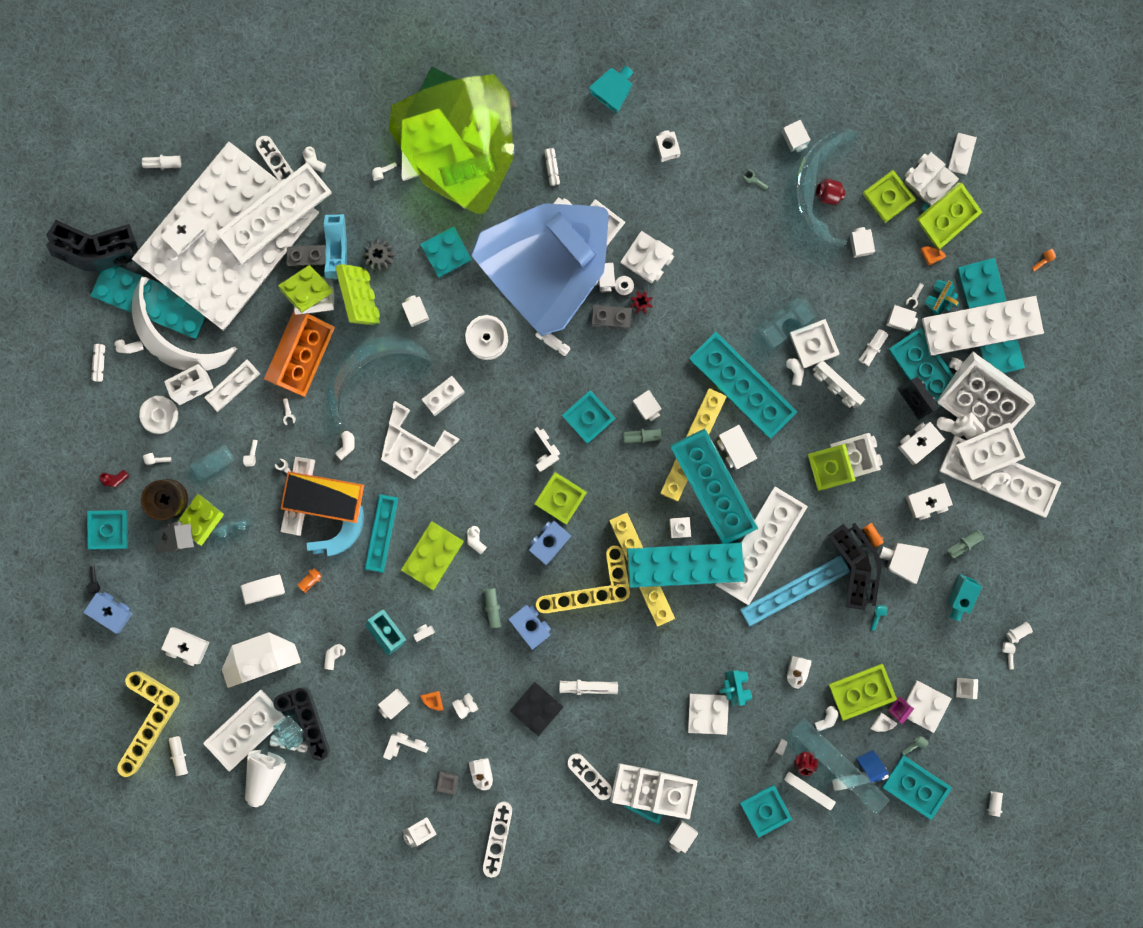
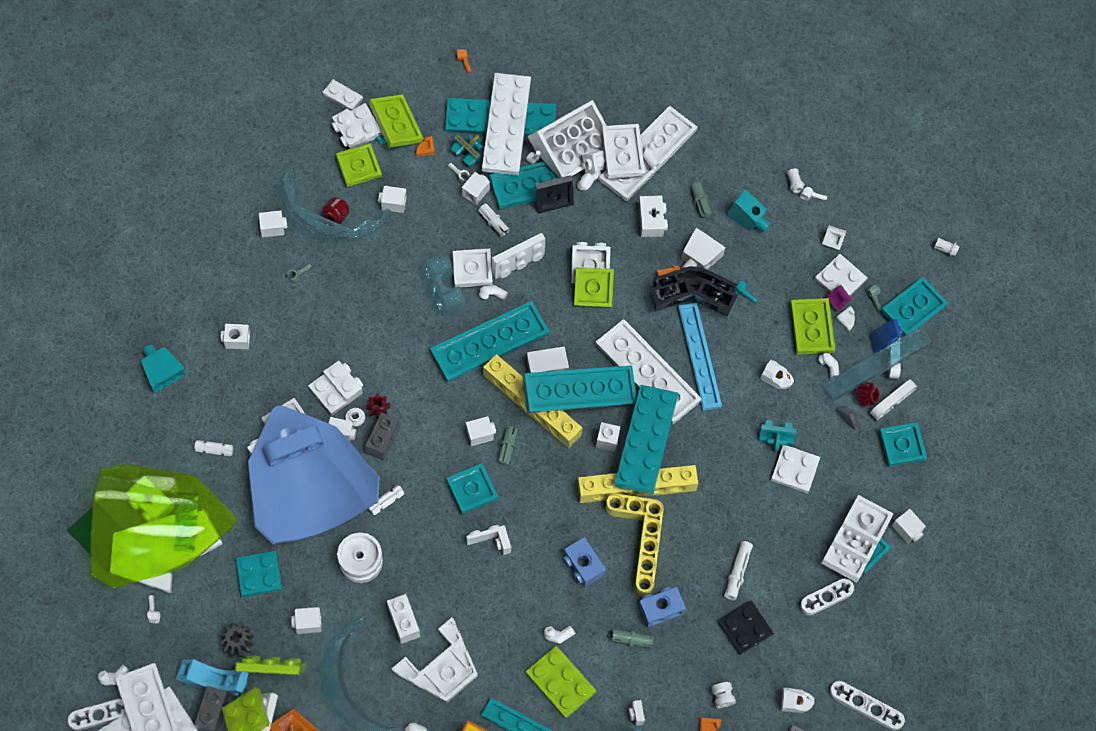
camera: 75 degrees left, 20 degrees down
(560, 498) = (543, 539): lime plate -> none
(931, 438) = (596, 207): white brick -> none

